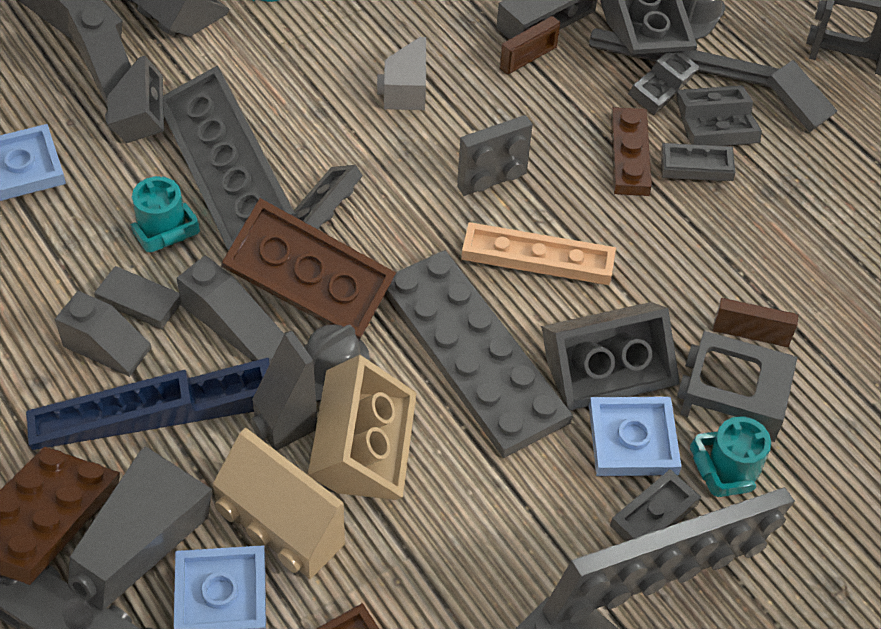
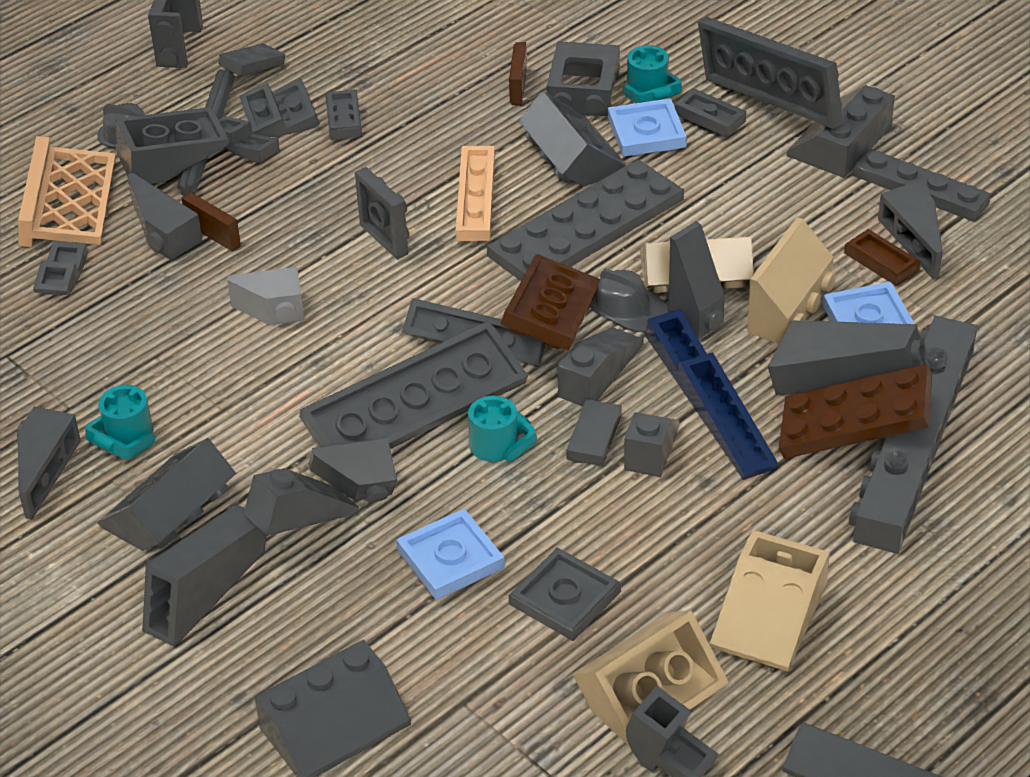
camera: 95 degrees left, 10 degrees down
(630, 151) = (333, 156): reddish brown plate -> none

